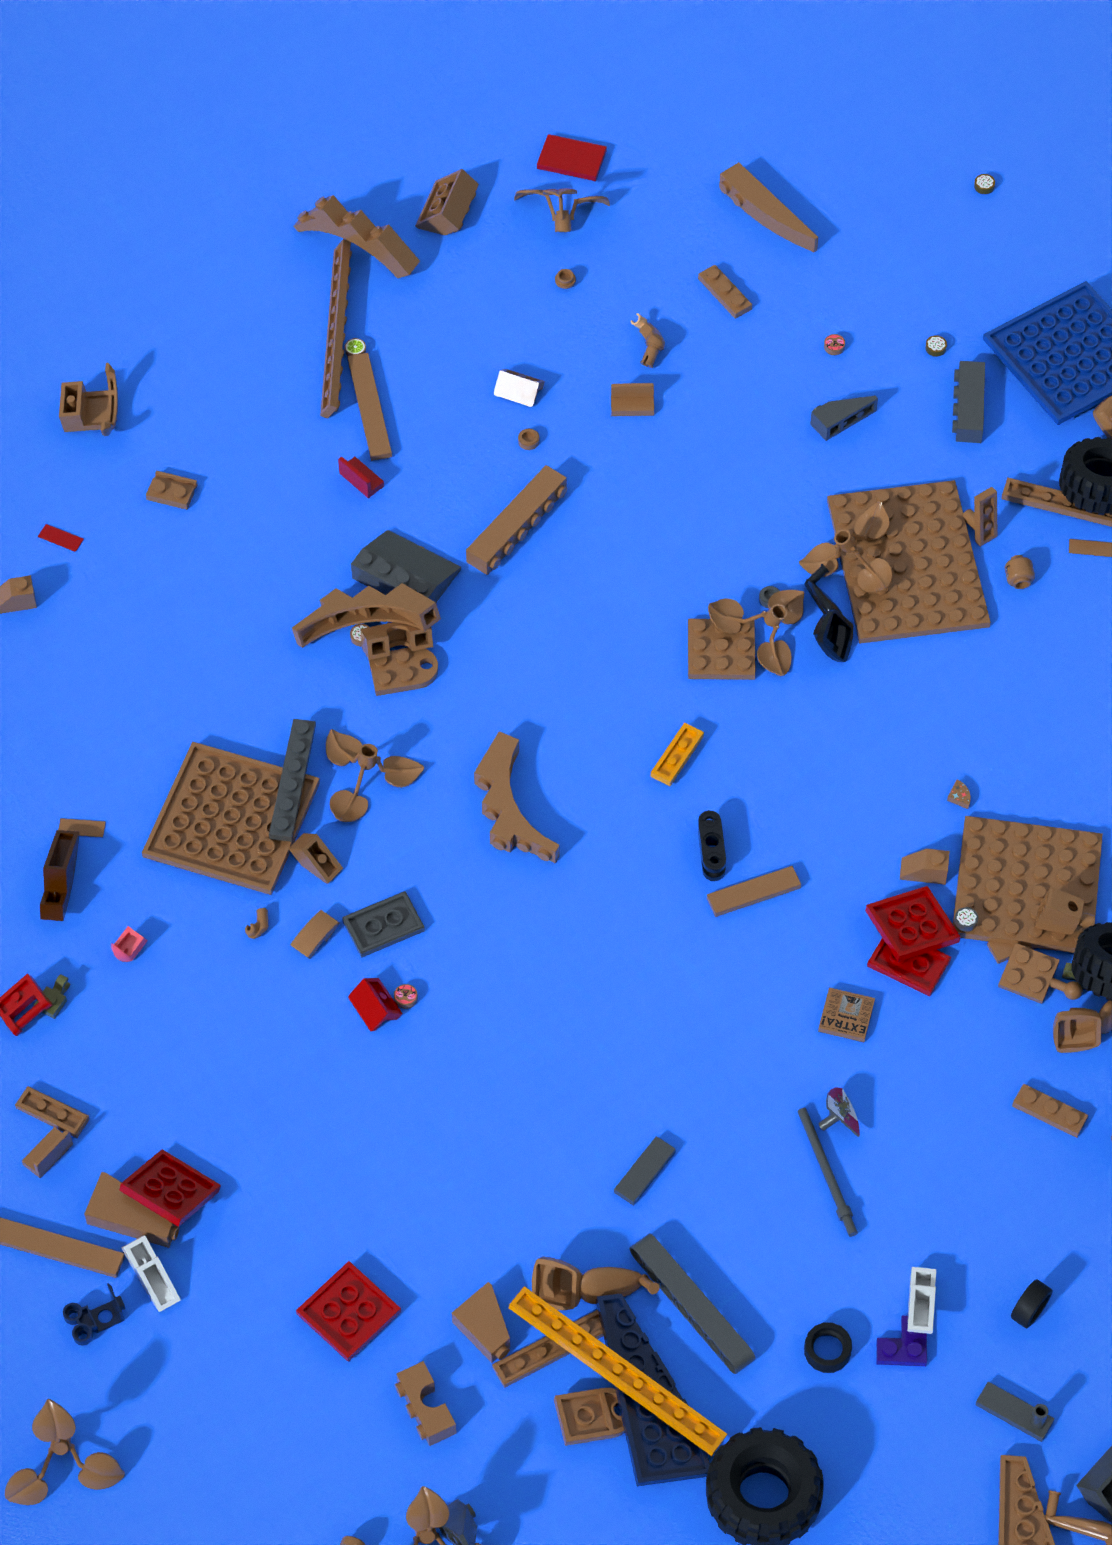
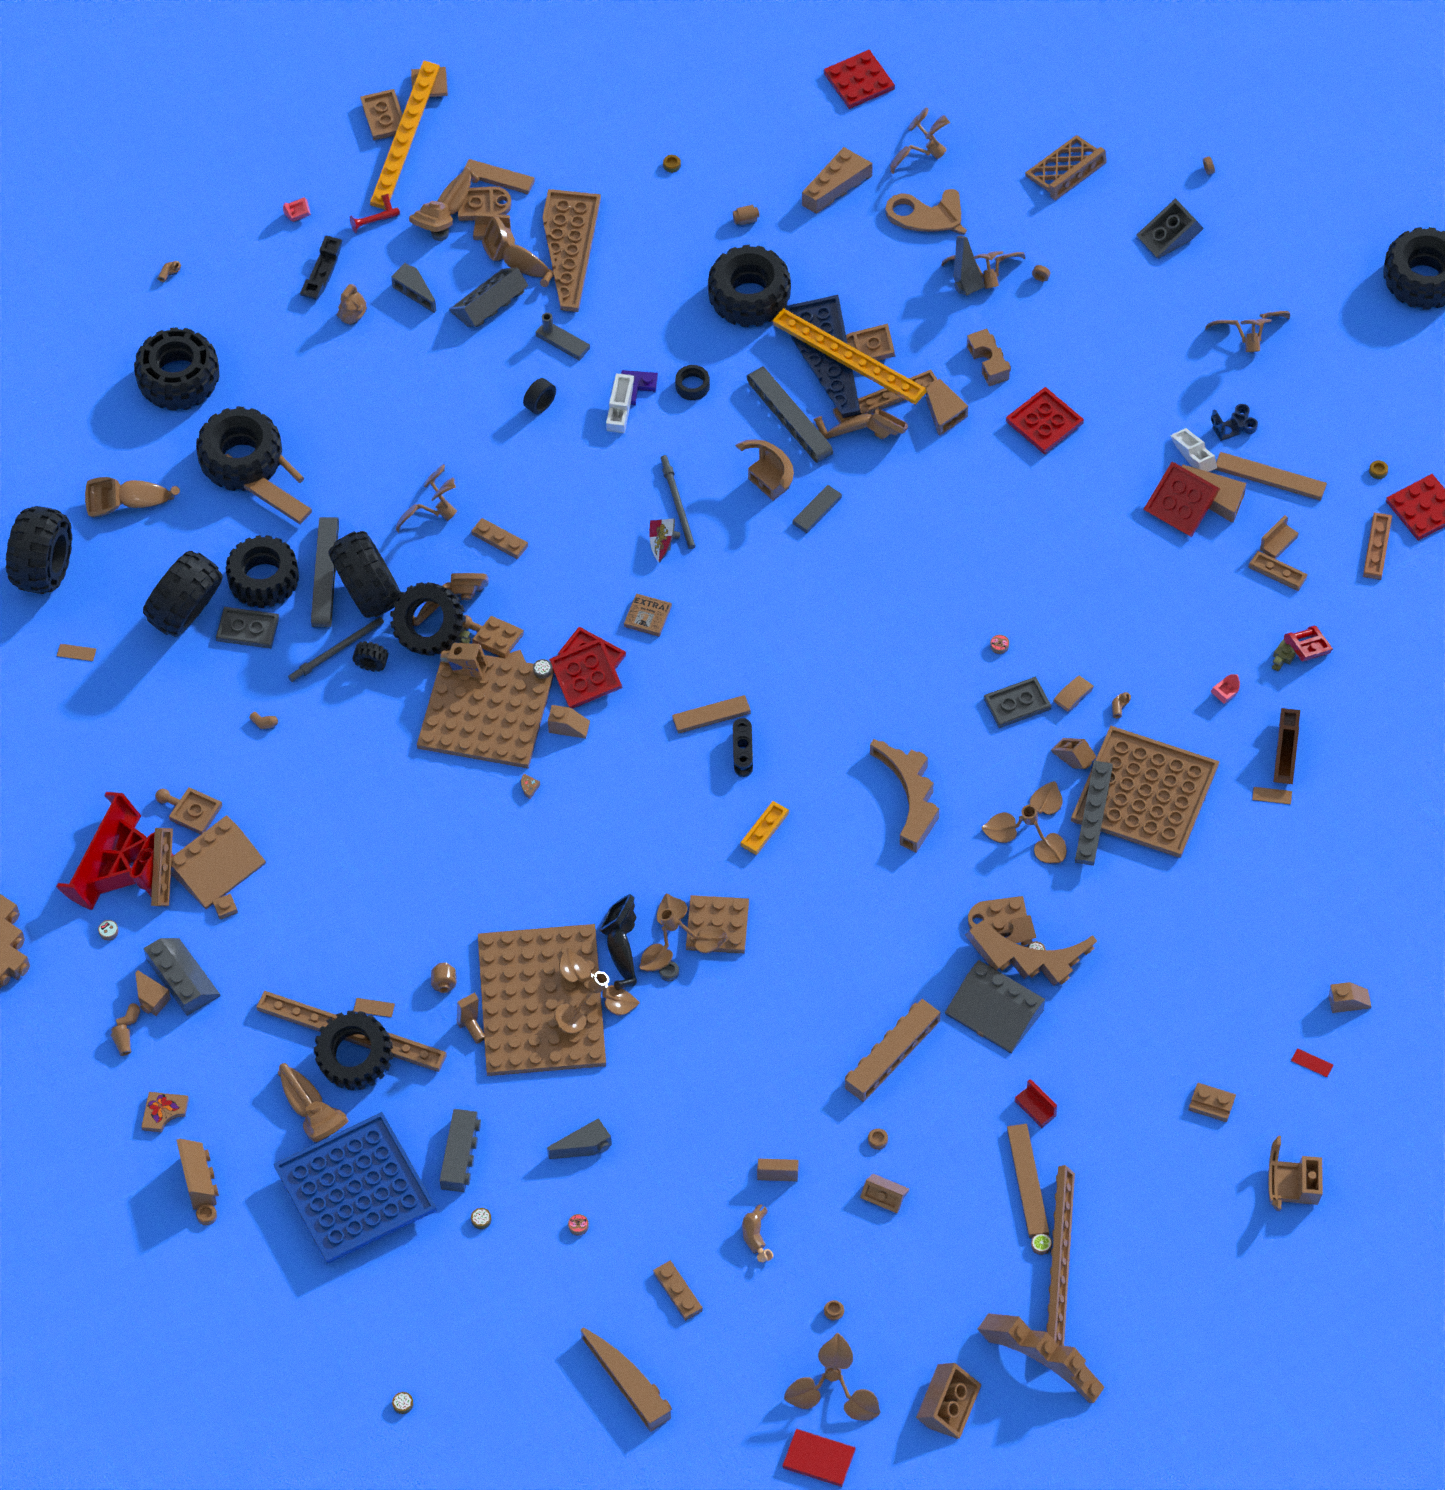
camera: 175 degrees left, 0 degrees up
(374, 1003) = (1023, 637): red panel -> none
(708, 1200) = (772, 471): none -> medium nougat piece

